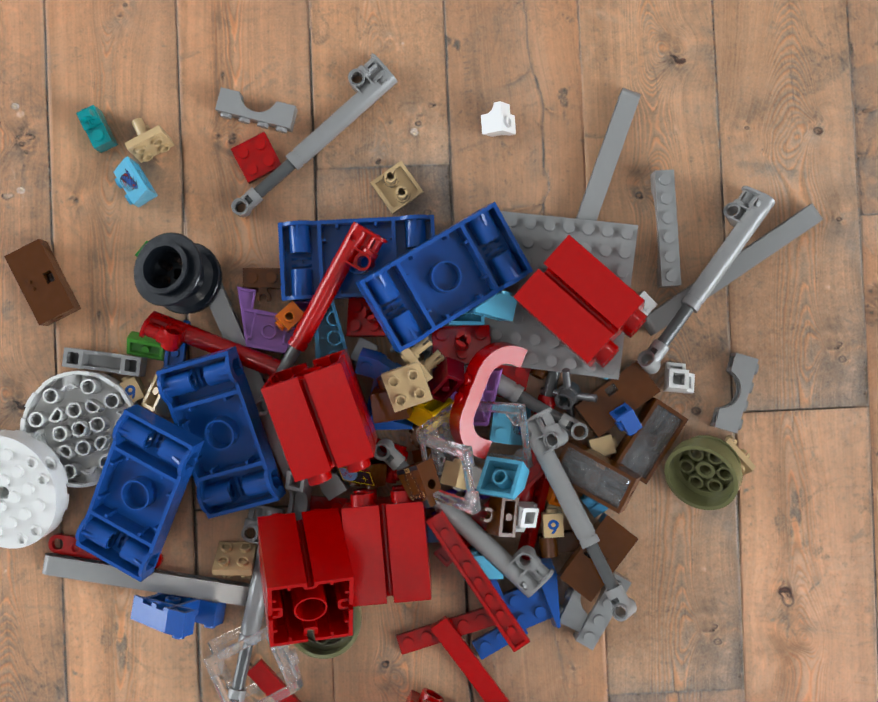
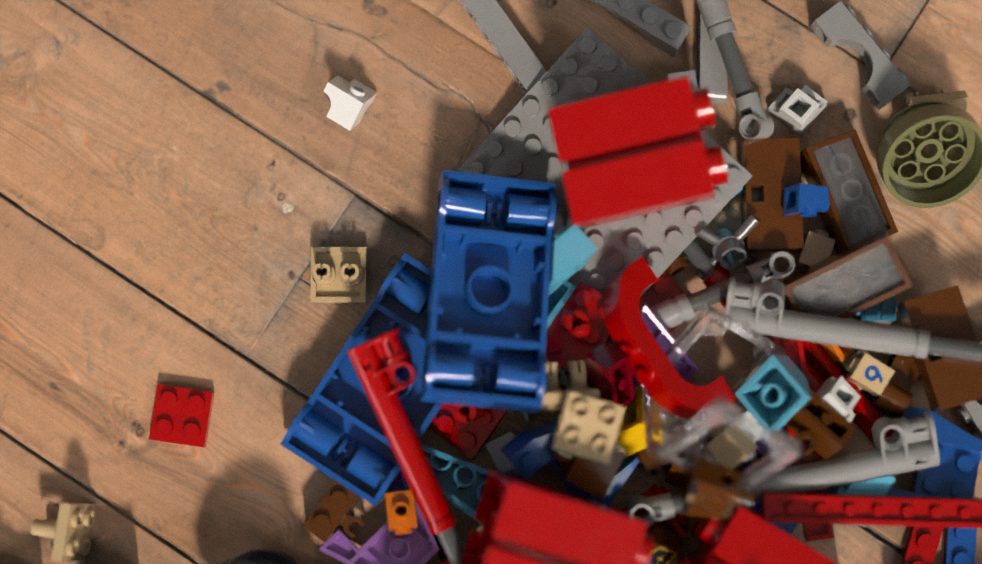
camera: 55 degrees left, 5 degrees down
(280, 116) = (154, 353): light grey arch -> none
(374, 84) = (198, 212): light grey piece -> none
(504, 431) = (717, 353): medium azure slope -> none

